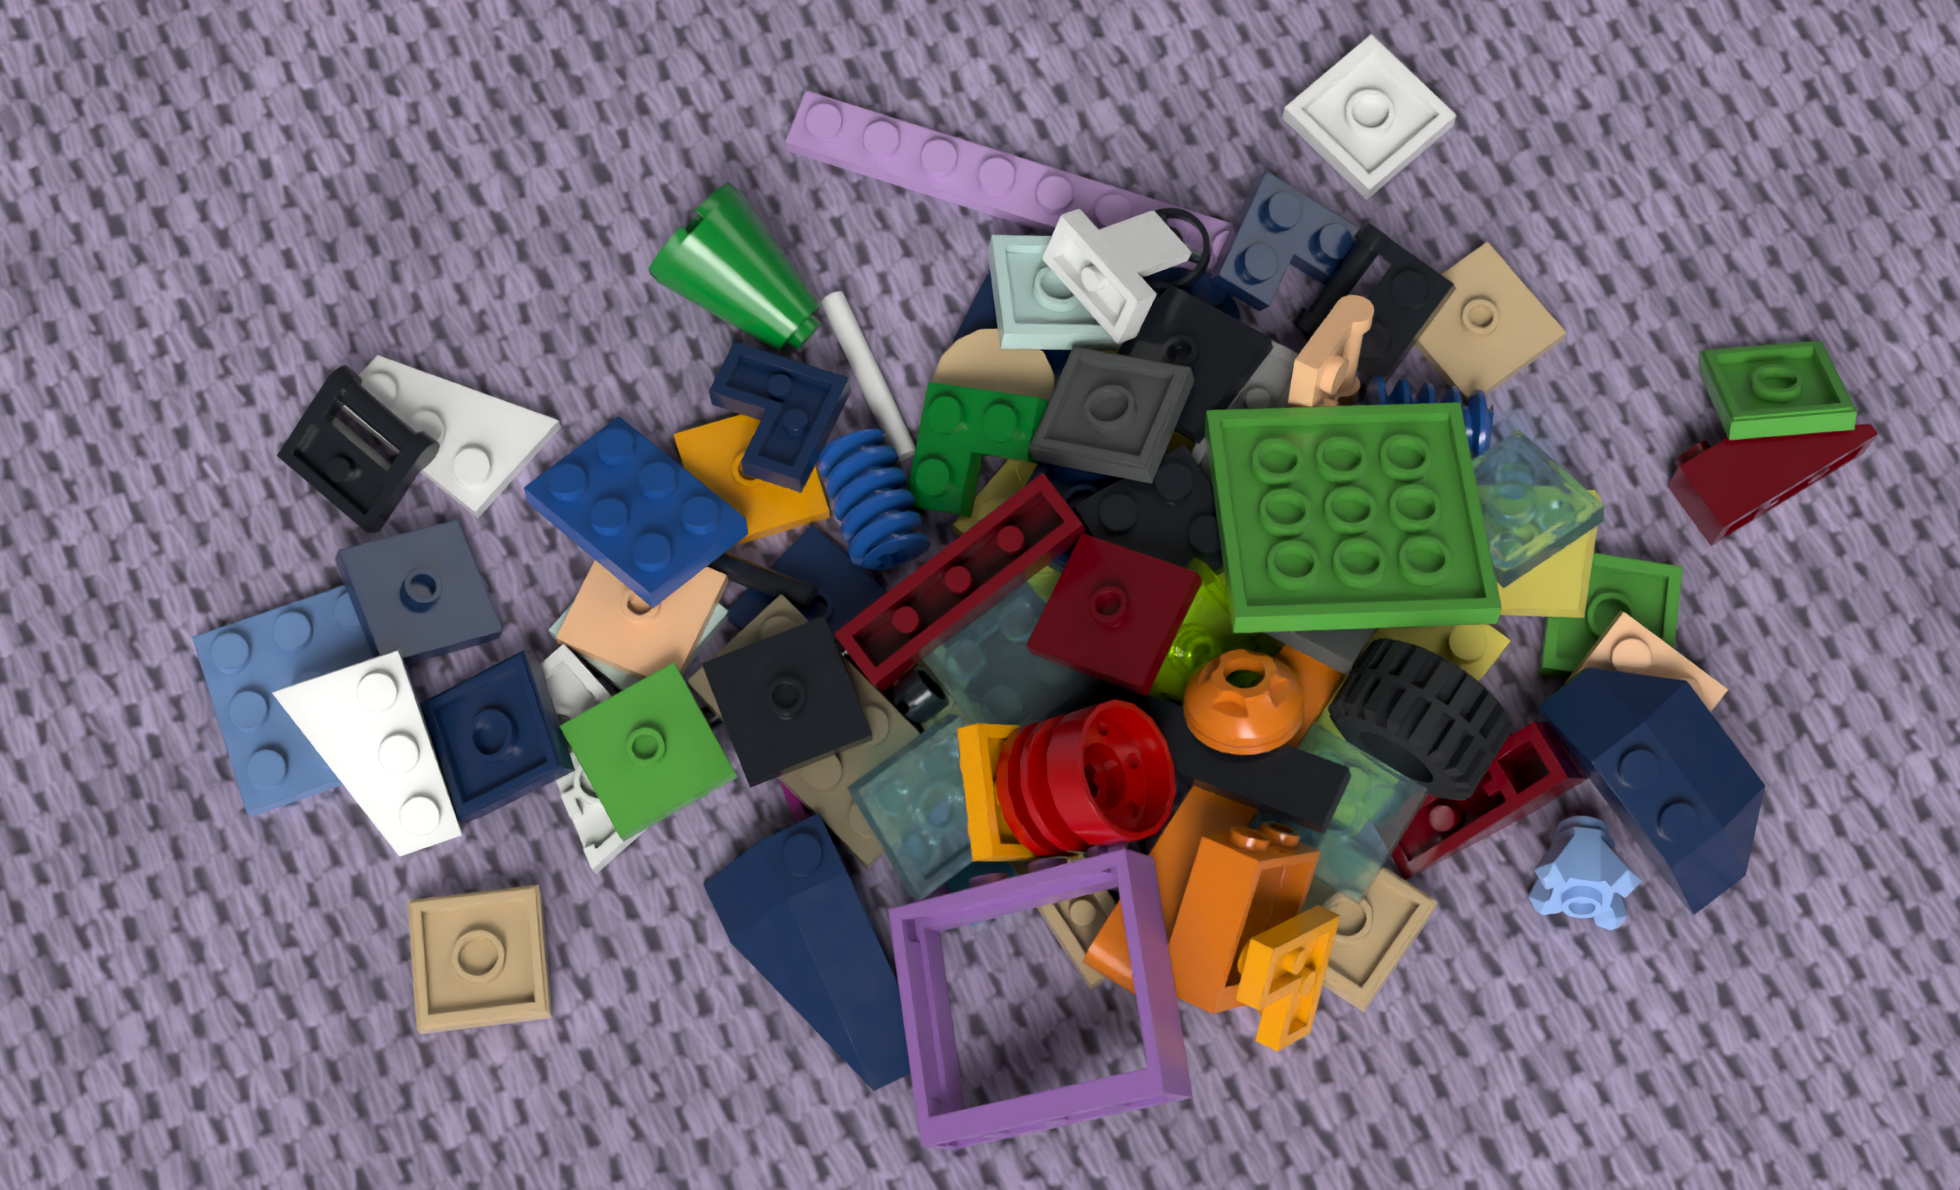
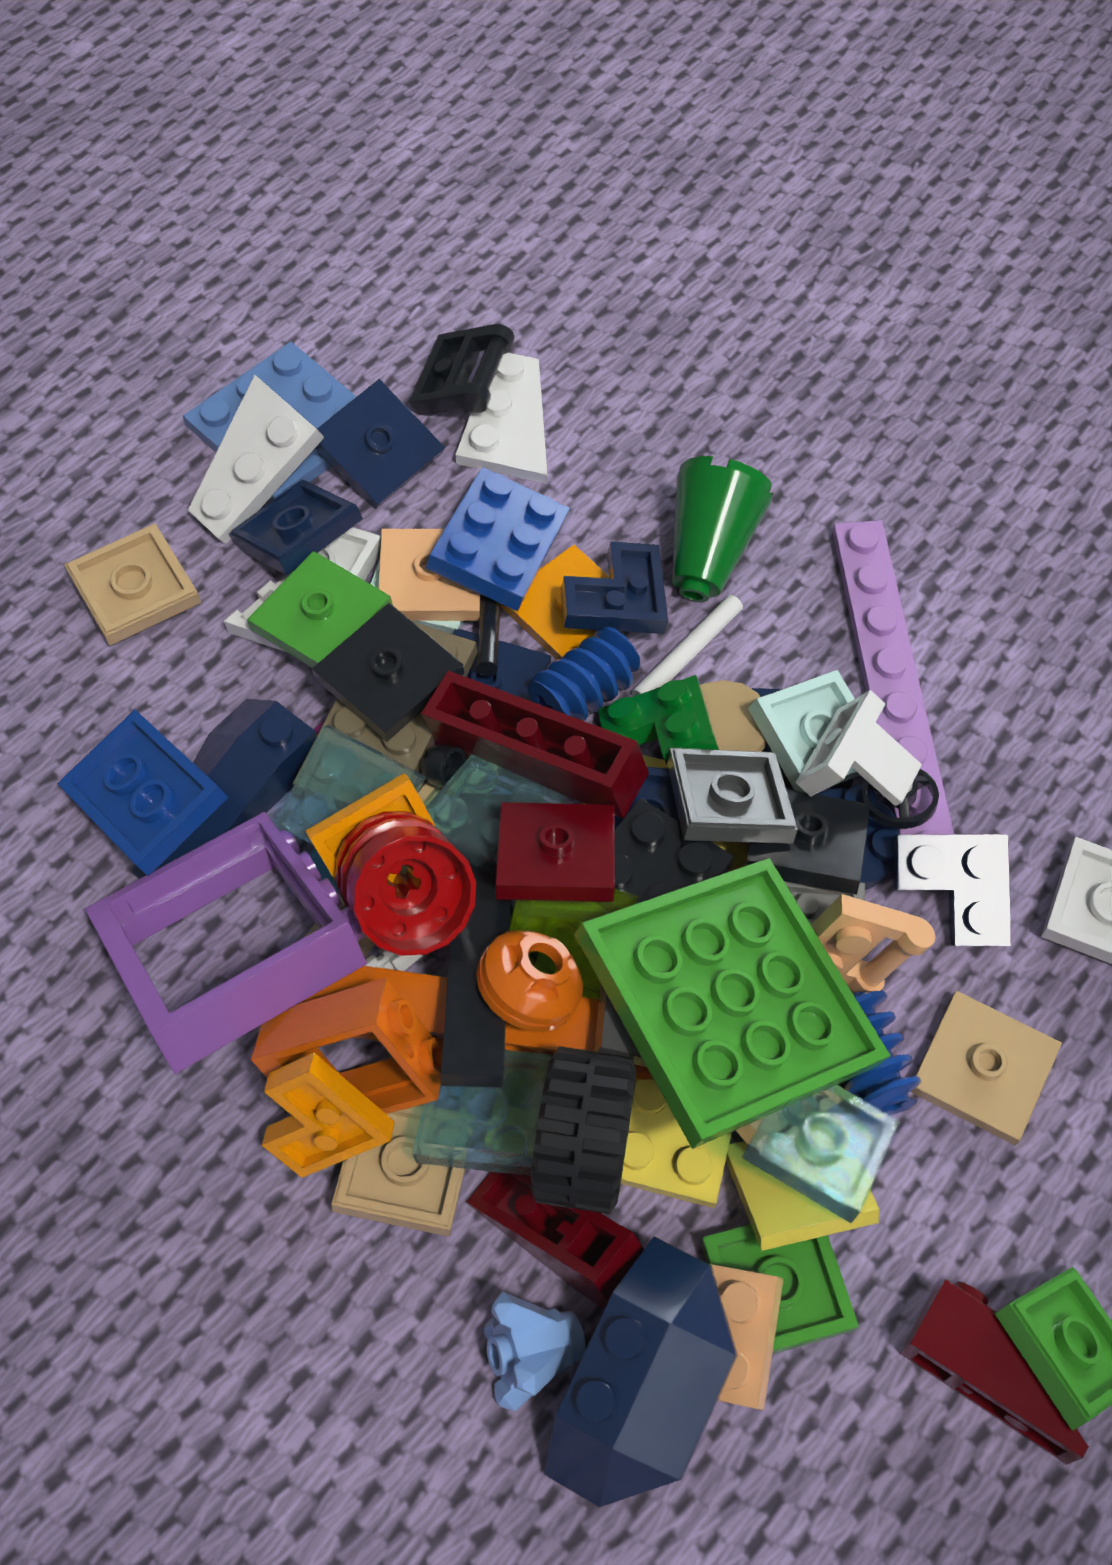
camera: 65 degrees right, 10 degrees down
(797, 1035) = (142, 792): none -> blue plate
(1402, 301) = (955, 989): black plate -> none

